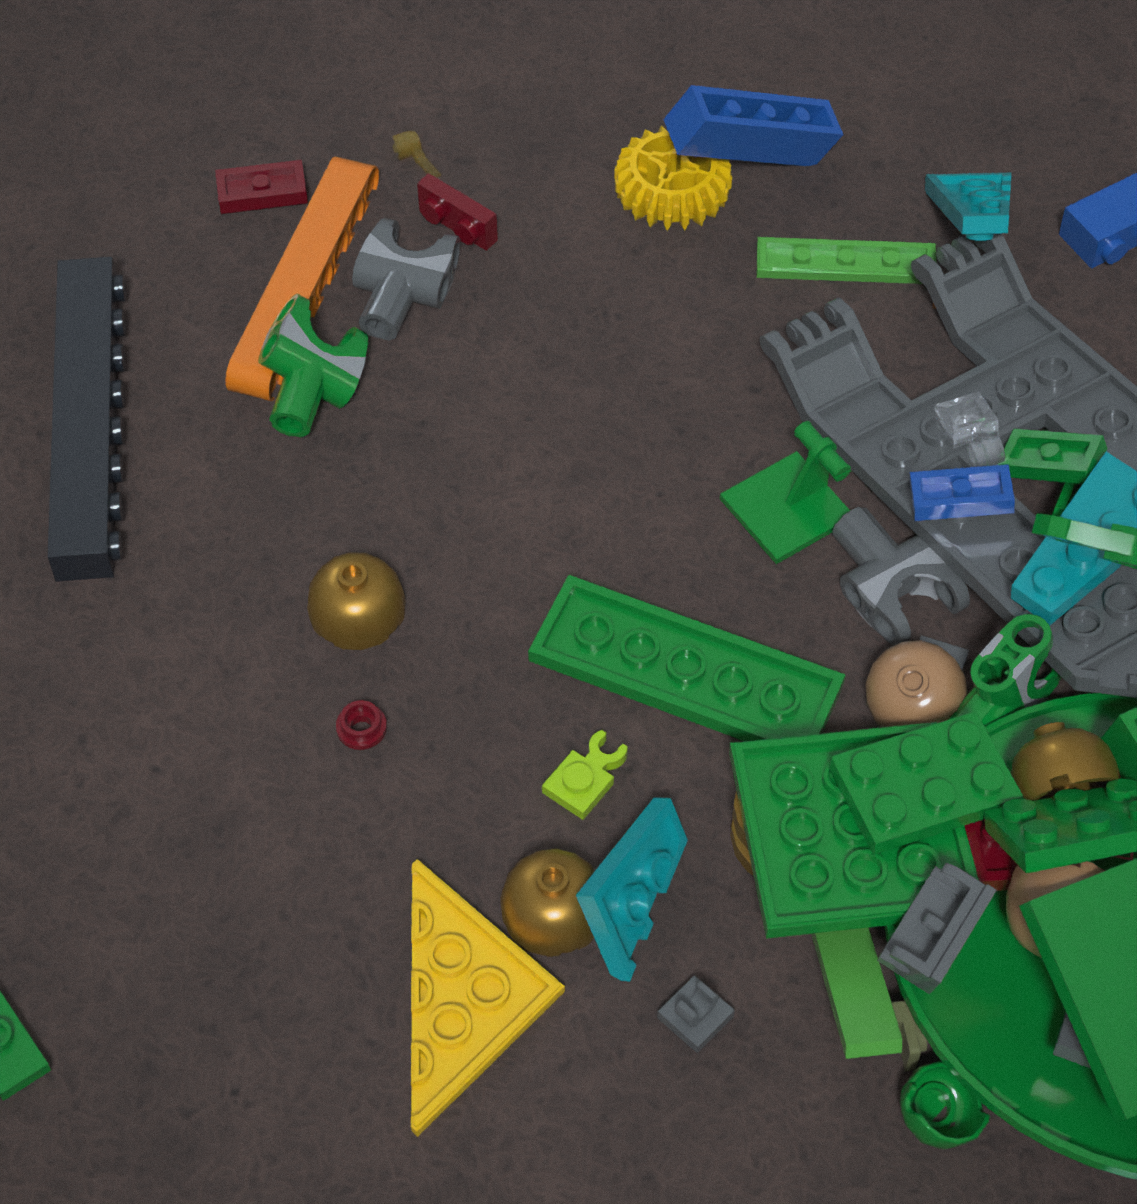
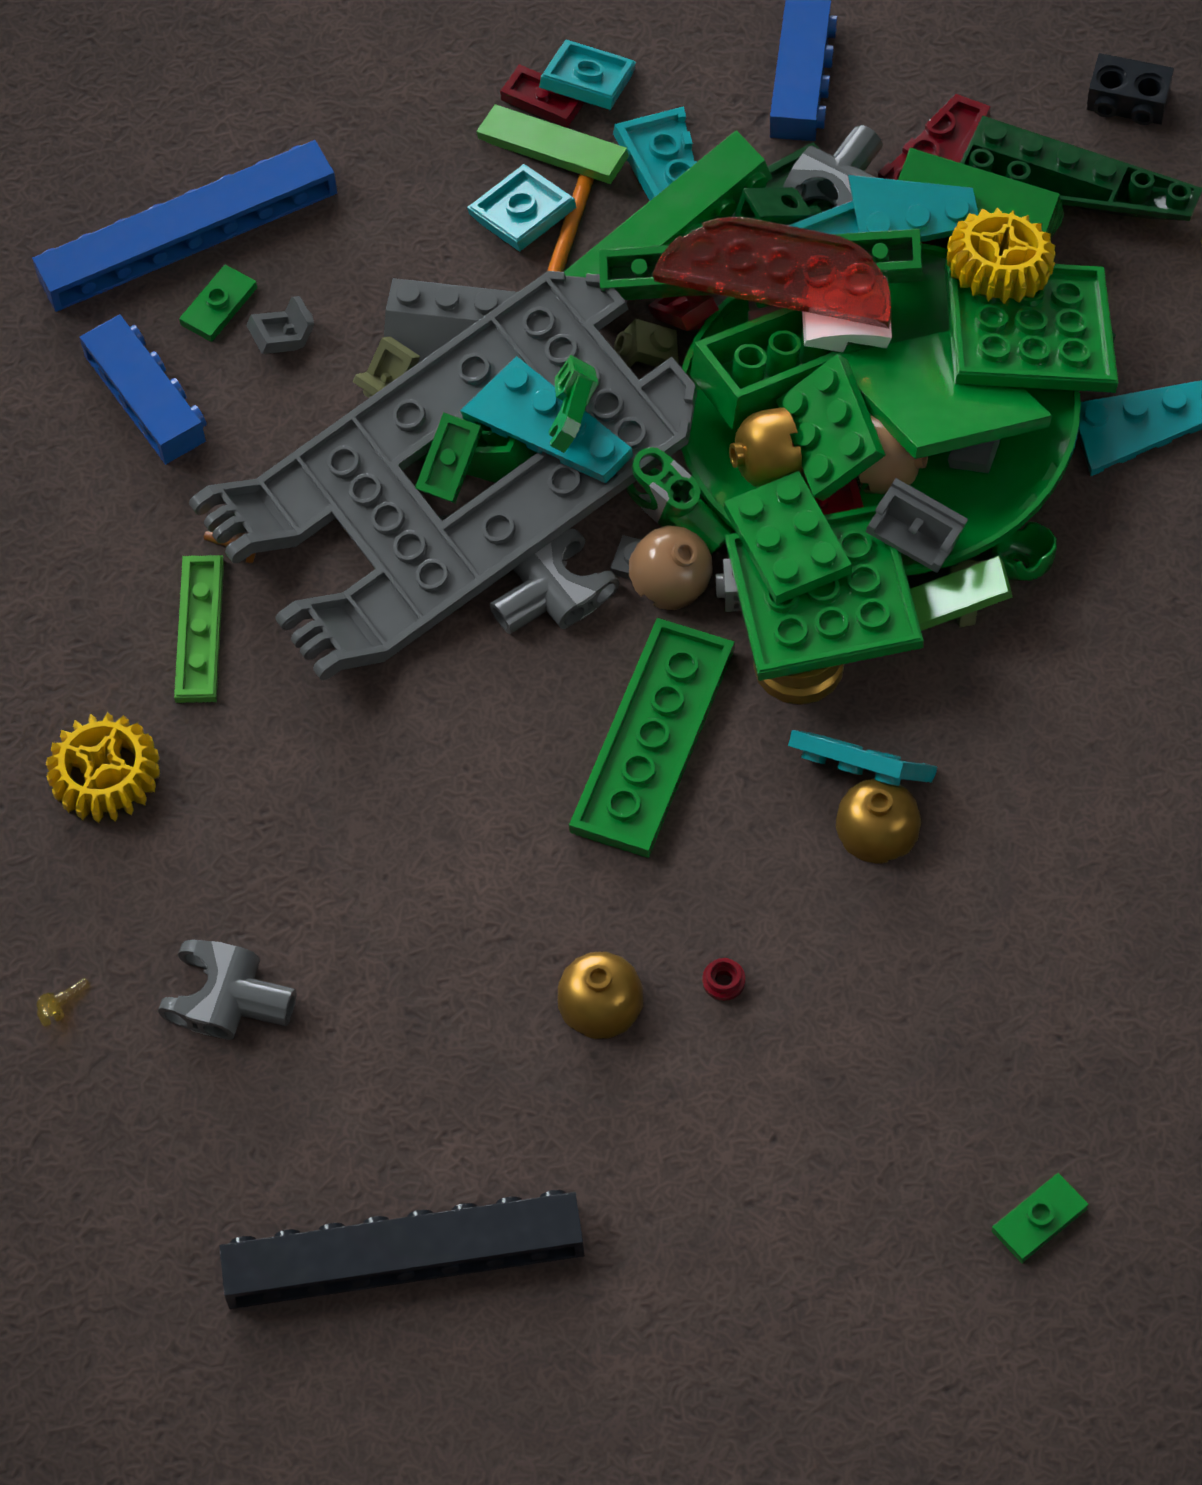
camera: 90 degrees left, 5 degrees up
(261, 186) = (105, 1135): dark red plate -> none
(304, 267) = (226, 1076): orange beam -> none
(309, 367) = (352, 1049): green connector -> none
(457, 211) = (138, 961): dark red plate -> none
(467, 995) = (960, 877): yellow tile -> none
(583, 780) = (760, 810): lime plate -> none
(695, 1014) = (961, 719): dark grey tile -> none
(752, 126) = (74, 682): blue brick -> none
(791, 500) = (481, 662): green plate -> none
(962, 492) = (499, 517): blue plate -> none
(971, 423) = (417, 514): clear plate -> none
(973, 201) = (154, 513): teal wing -> none

